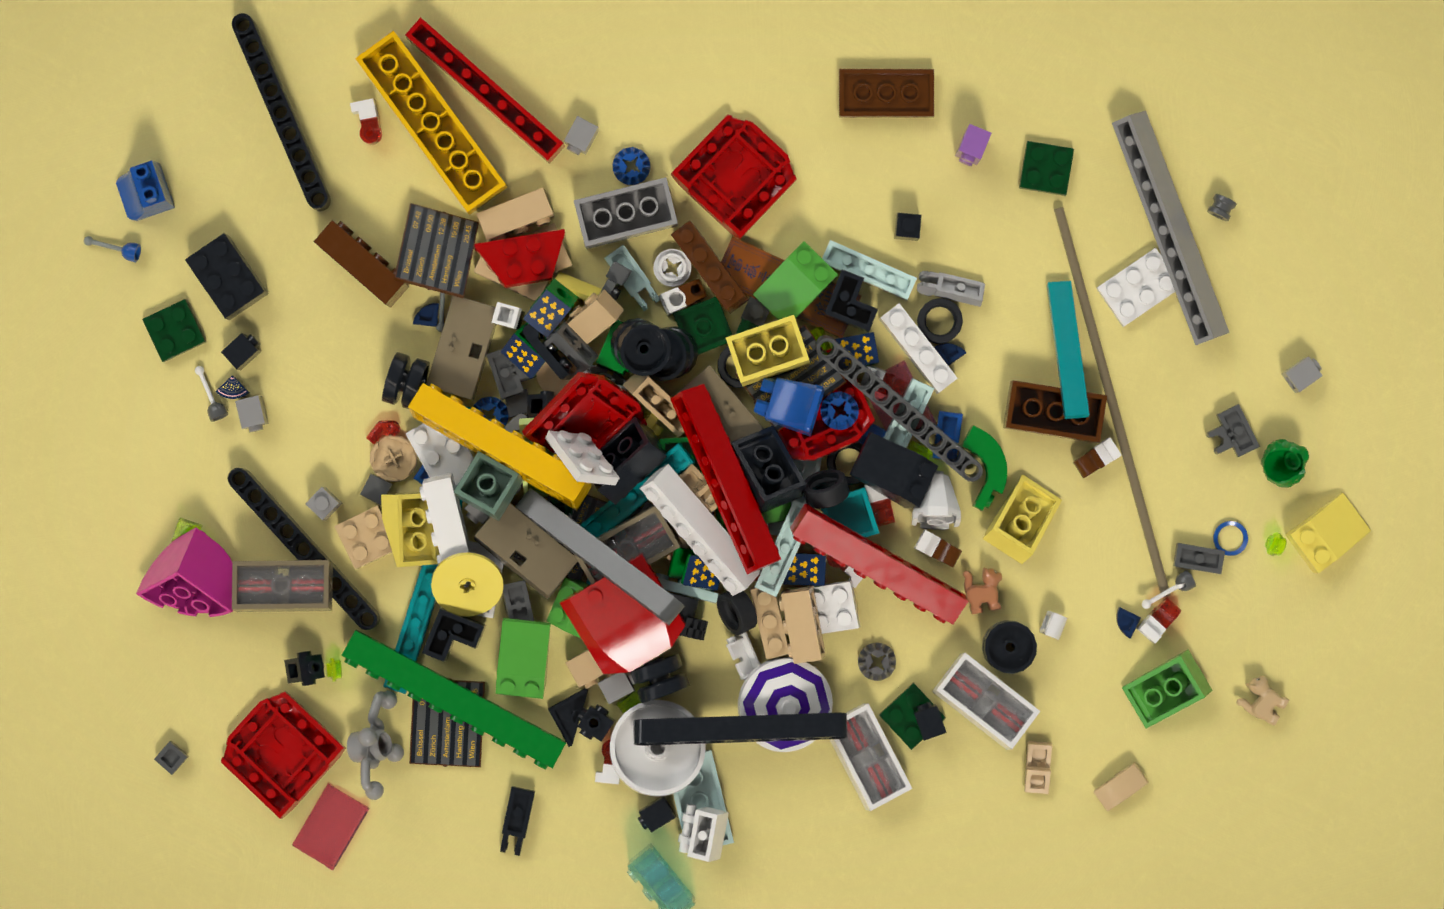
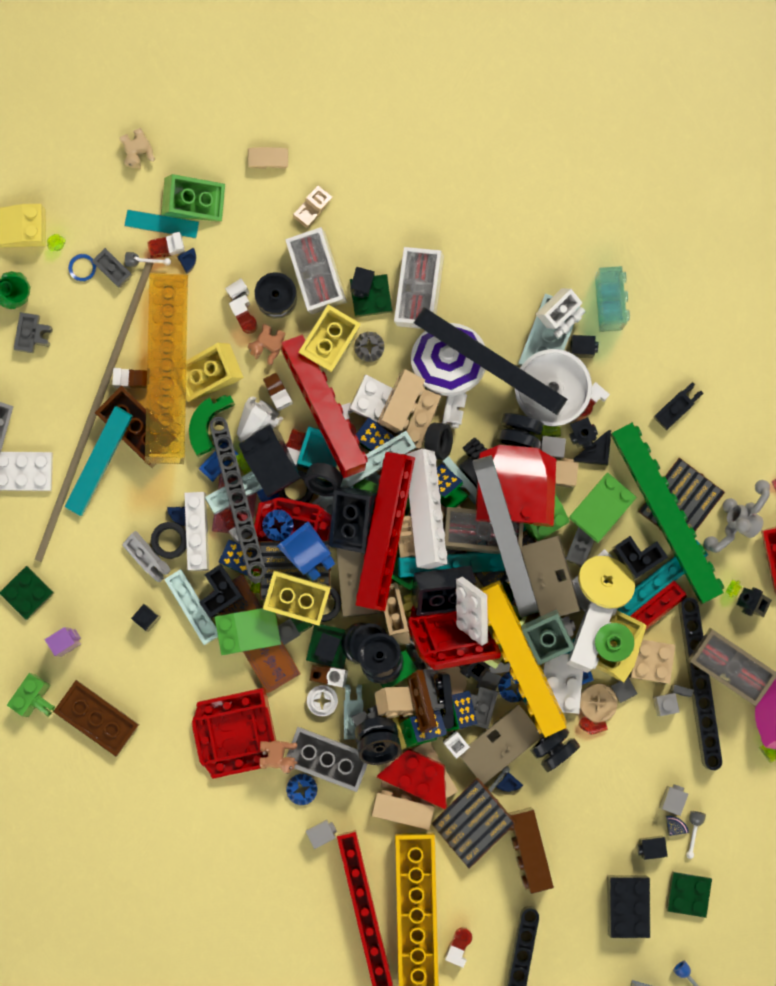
camera: 145 degrees left, 5 degrees down
(317, 528) = (681, 690): none -> dark grey tile
(398, 599) = (660, 604): none -> red plate
(417, 538) = (619, 634): none -> bright green dish
(570, 332) = (421, 701): none -> reddish brown tile
(587, 264) = (378, 741): none -> black wheel
(679, 180) = (275, 755): none -> nougat animal
(703, 322) = (327, 648): none -> black brick
(709, 267) = (296, 682): reddish brown brick -> none
(921, 639) = (330, 338): none -> light yellow slope
(967, 68) = (30, 696): none -> bright green brick
(1022, 599) = (246, 321): none -> leg
(1066, 491) = (166, 369): none -> clear yellow brick
(1182, 641) = (161, 223): none -> teal sticker

